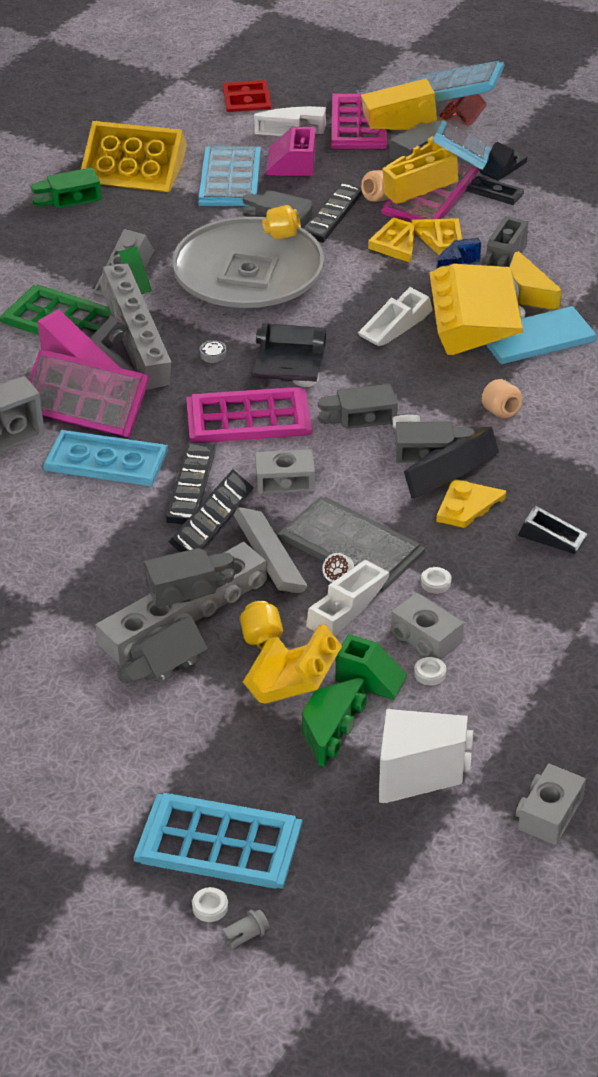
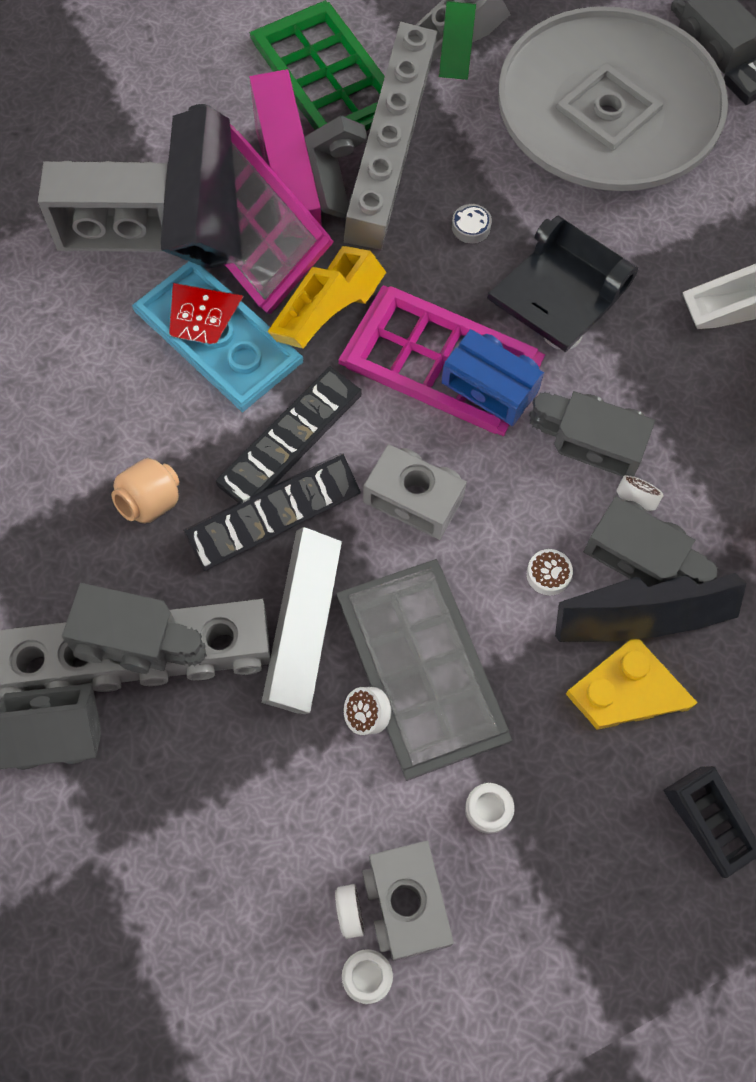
camera: 30 degrees right, 25 degrees up
(52, 384) = (201, 190): none -> black slope
(89, 450) = (200, 313): none -> red sticker
(130, 535) = (145, 491): none -> light nougat head
(159, 407) = (325, 292): none -> yellow slope
(260, 622) = (196, 753): yellow head -> none
(281, 222) = (693, 55): yellow head -> none
(287, 403) = (492, 376): none -> blue brick
(292, 672) = (166, 876): yellow panel -> none
(331, 715) = (163, 989): green slope -> none
(347, 597) = (342, 774): white slope -> none
(369, 662) = (275, 936): green slope -> none
(385, 476) = (549, 572): none -> tile
(399, 646) = (349, 911): none -> white tile

